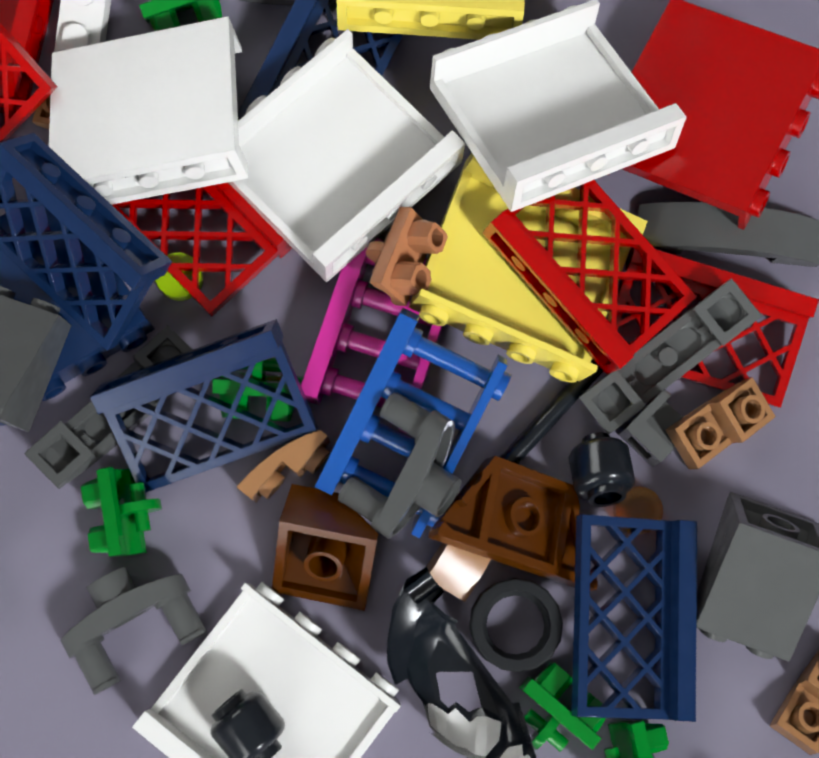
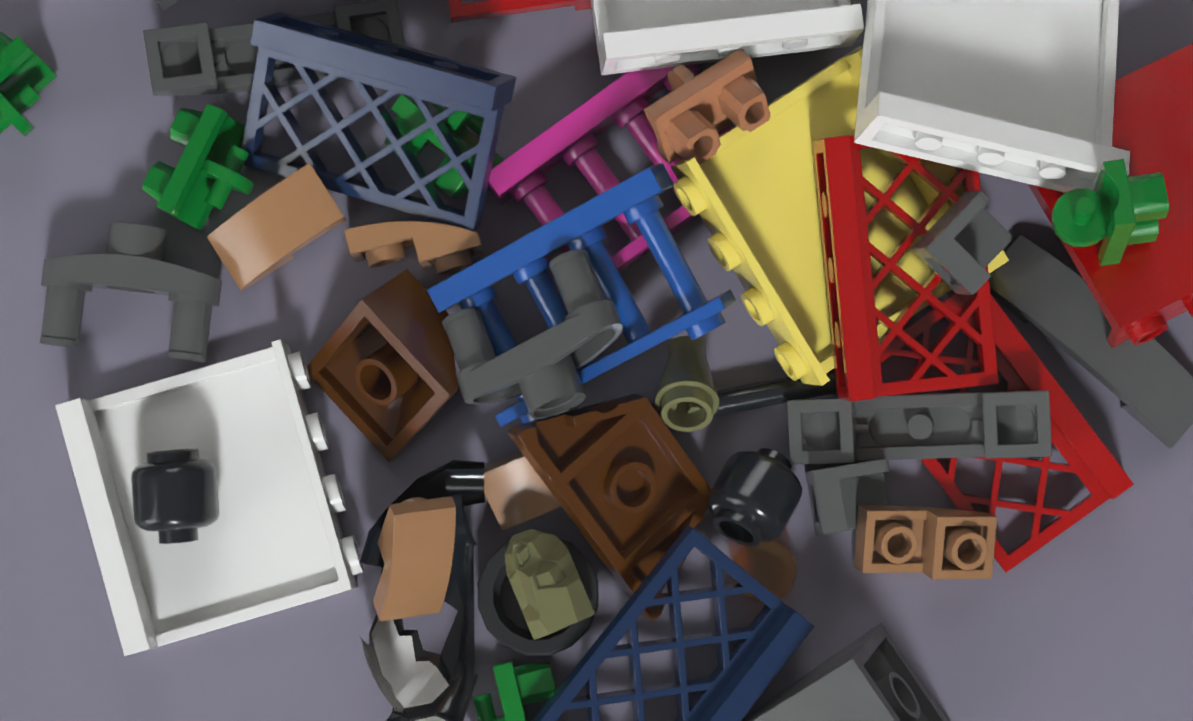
camera: 30 degrees right, 5 degrees up
(192, 516) = (275, 227): none -> medium nougat slope
(427, 655) = (417, 557): none -> medium nougat slope
(514, 433) = (687, 388): none -> olive cone
(519, 614) = (545, 582): none -> olive rock
(617, 227) = (963, 243): none -> dark grey panel
(693, 144) = (1117, 210): none -> green hips

